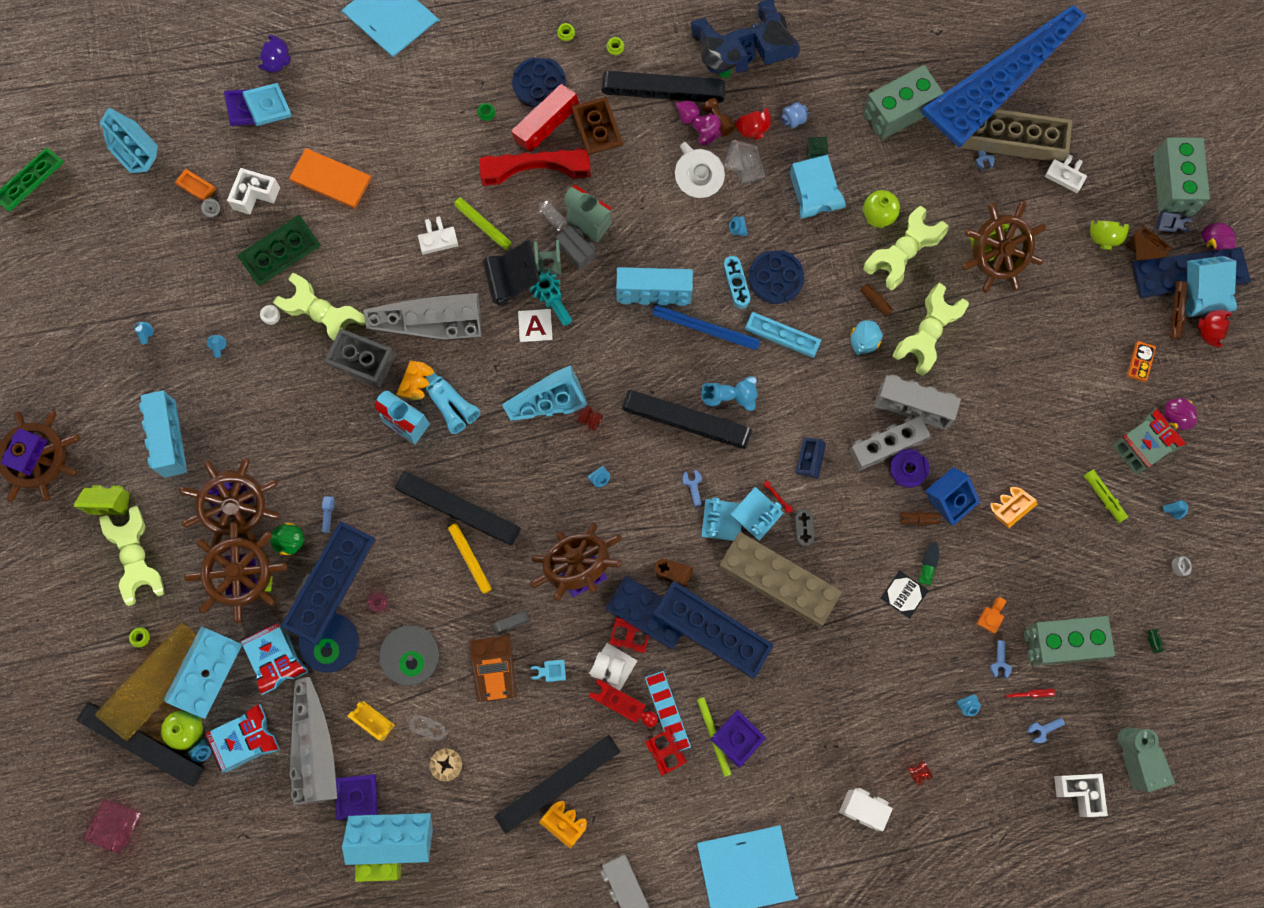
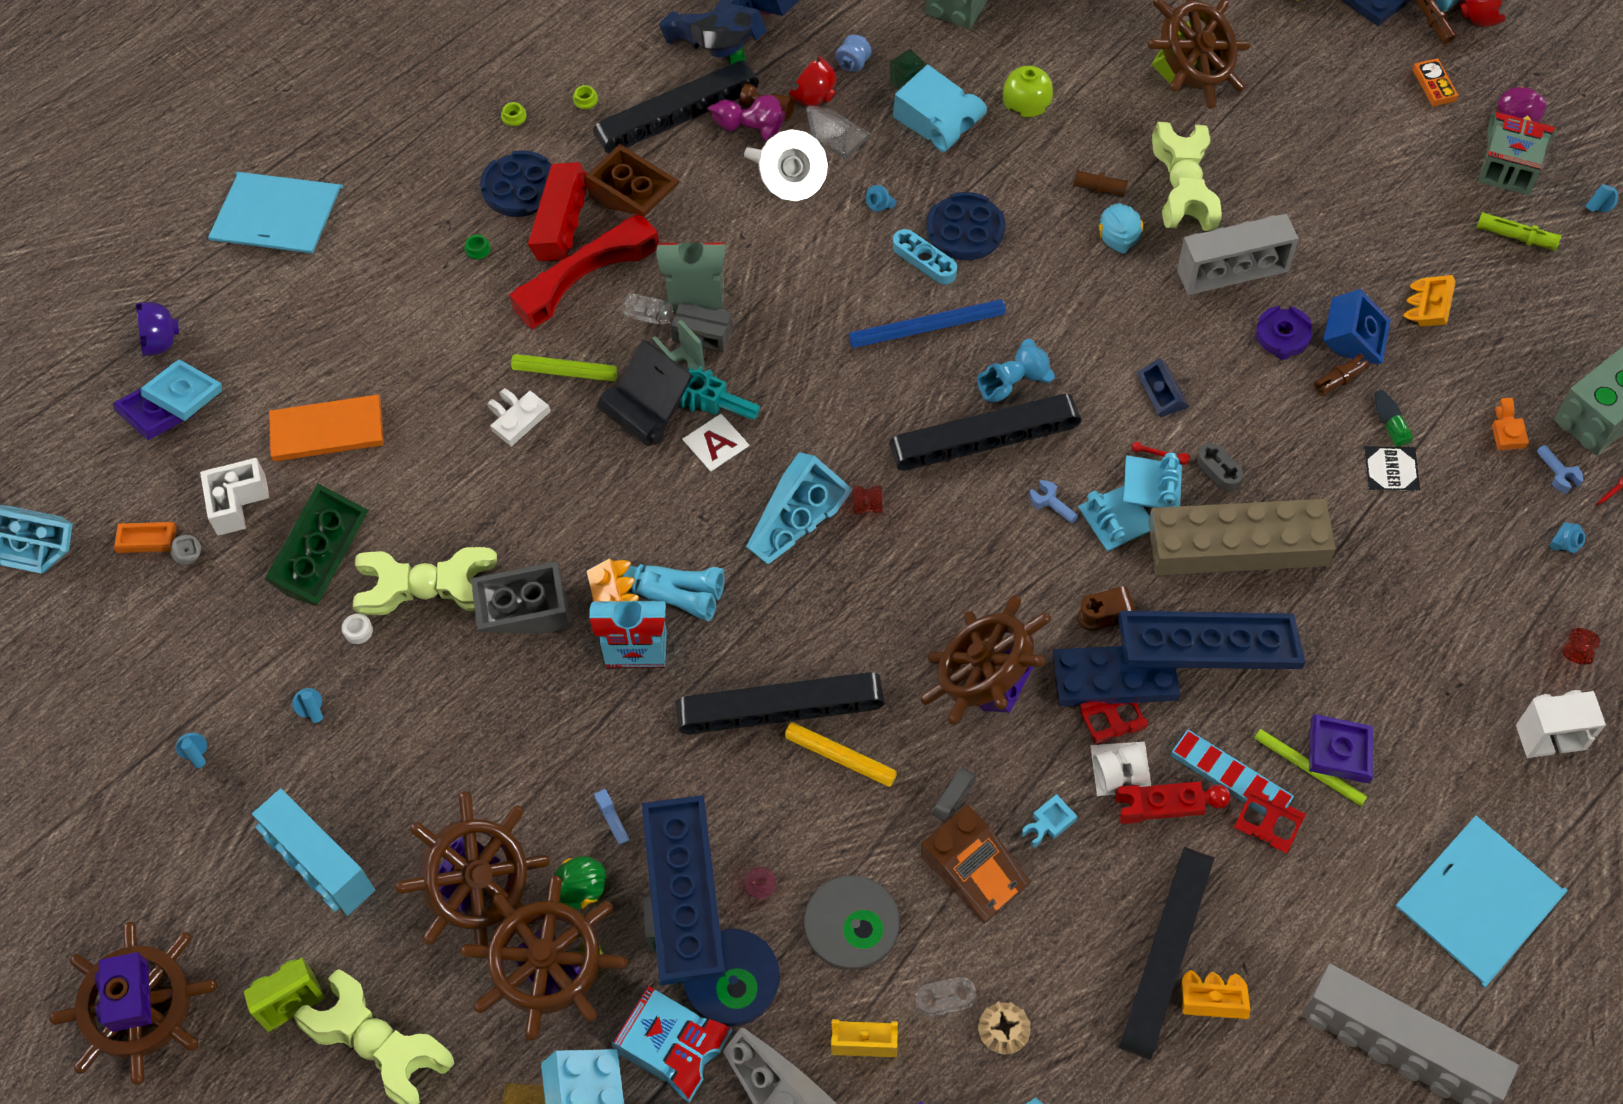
camera: 30 degrees left, 15 degrees down
(429, 317) = (577, 505): light grey wedge -> none
(599, 477) = (930, 559): dark azure plate -> none
(654, 286) = (833, 308): medium azure brick -> none
(782, 334) = (1023, 280): medium azure tile -> none
(914, 426) = (1239, 318): light grey brick -> none
(916, 237) = (1087, 129): yellowish green piece -> none

